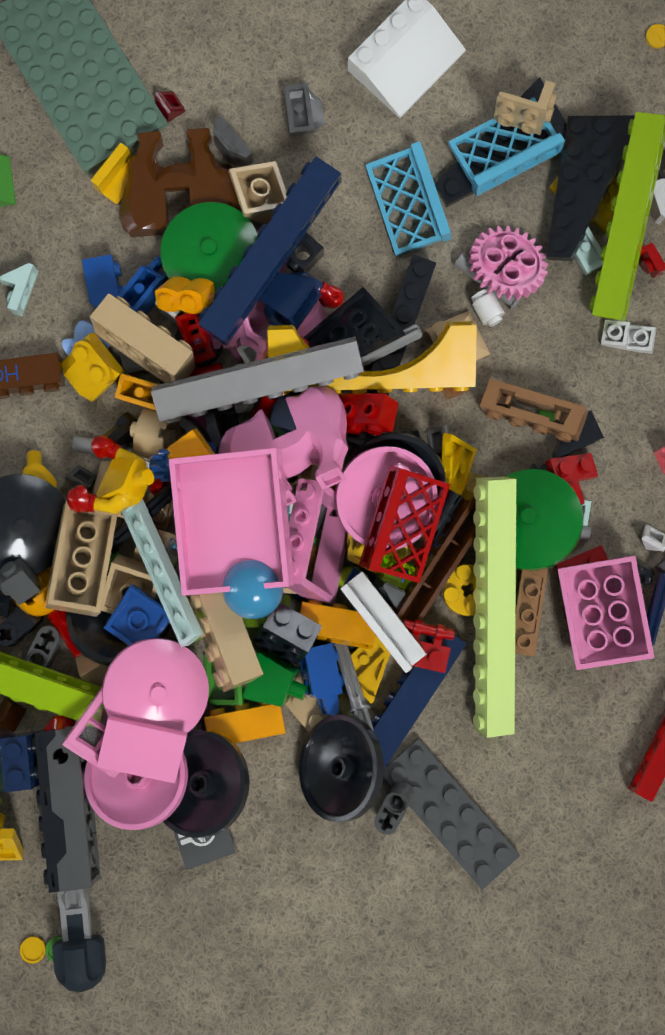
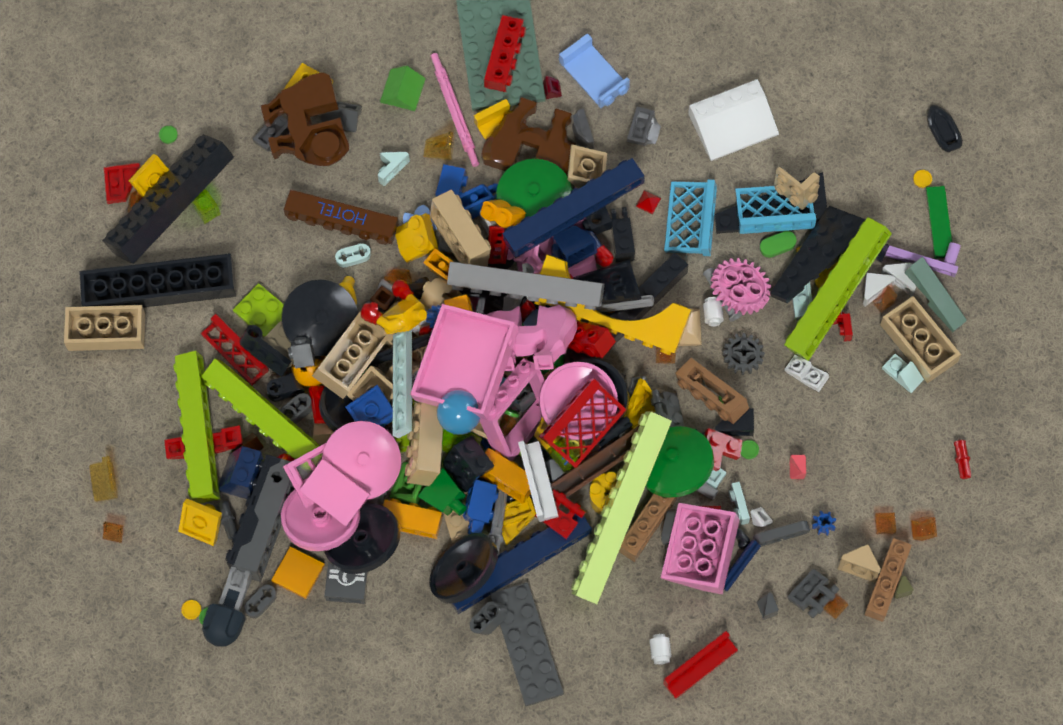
camera: 30 degrees right, 15 degrees down
(19, 417) = (352, 251): none -> light aqua beam
(24, 821) = (227, 518): none -> dark grey axle
(66, 185) = (454, 109): none -> bright pink axle
(67, 237) = (440, 146): none -> clear yellow slope
(85, 462) = (383, 298): none -> reddish brown slope
(91, 84) = (504, 52): none -> red brick
(92, 426) = (398, 274): none -> clear orange slope
(106, 901) = (257, 597): none -> dark grey beam
(140, 851) = (298, 572): none -> light orange tile
(210, 63) = (593, 72): none -> light blue panel
(340, 259) = (622, 237): none -> black hinge
(349, 202) = (648, 202): none -> red slope
(489, 455) = (667, 406): none -> dark grey plate
(525, 190) = (778, 244): none -> bright green tile
(543, 335) = (735, 353): none -> dark grey gear
(555, 597) = (668, 525): none -> dark grey beam
(603, 459) = (749, 449): none -> bright green piece
(609, 752) = (660, 649): none -> white brick
(628, 540) = (741, 509): none -> light aqua plate

